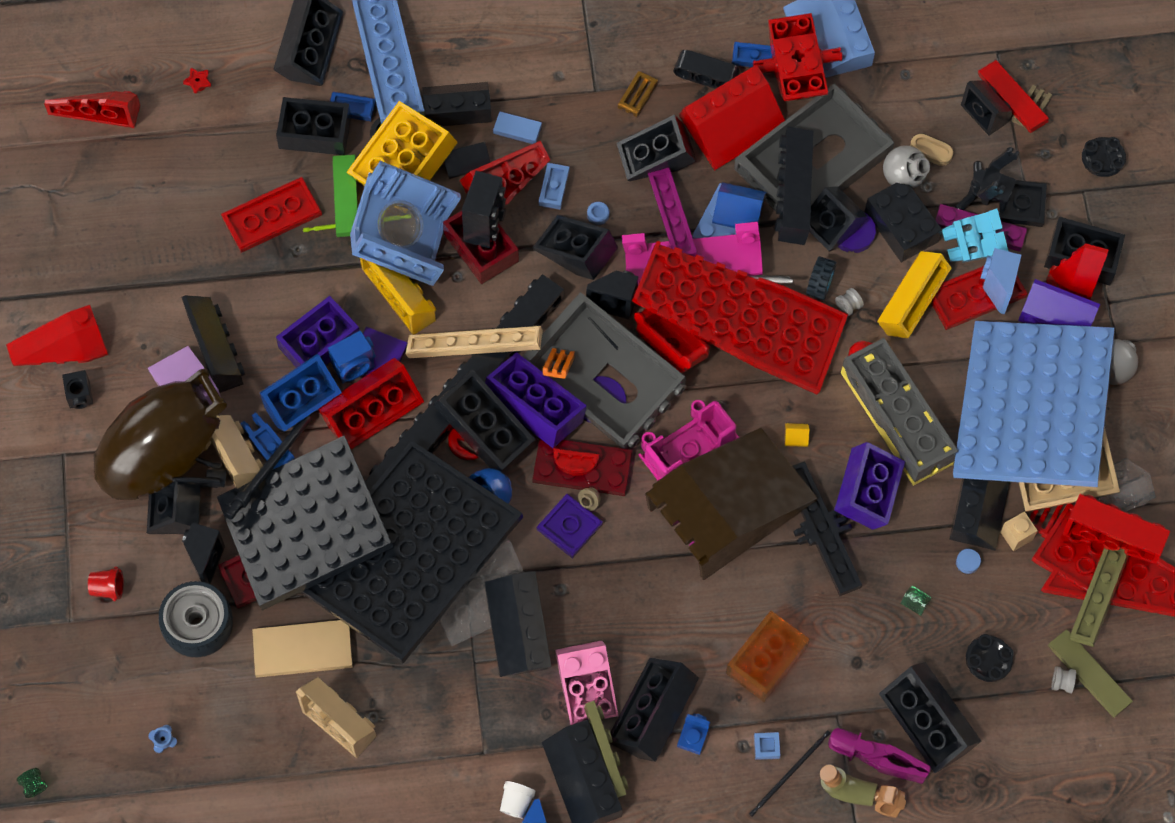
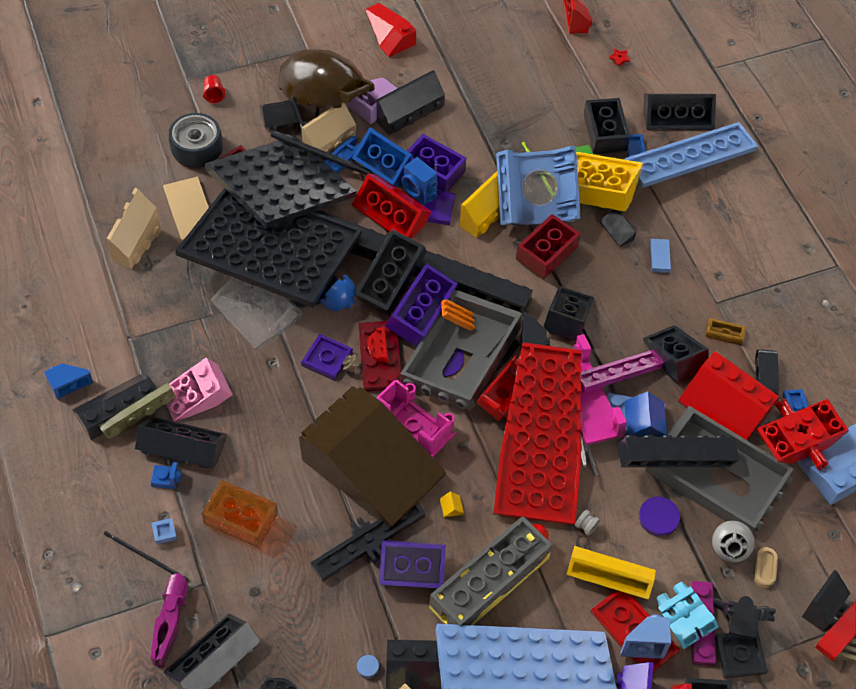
camera: 75 degrees right, 10 degrees down
(32, 782) = (63, 82): clear green wheel -> none
(75, 381) = (354, 43): black brick -> none
(155, 736) = (107, 144): medium blue plate -> none
(204, 549) = (243, 130): black slope -> none
(271, 214) = (528, 121): red tile -> none
(457, 104) = (663, 210): black slope -> none
(474, 342) = (459, 257): tan tile -> none
(483, 209) = (562, 222): black brick -> none
(514, 169) = (611, 252): red wedge -> none
(516, 799) = (91, 360): white piece -> none
(517, 624) = (231, 333): black slope -> none
(554, 186) = (617, 288): medium blue plate -> none
(598, 213) = (605, 324): medium blue tile -> none
(821, 278) = (600, 493): black wheel -> none
(834, 217) = (662, 492): black slope -> none
(860, 792) = (134, 607): piece -> none
(903, 220) = (681, 551): black brick -> none
(916, 600) = (322, 628): clear green slope -> none

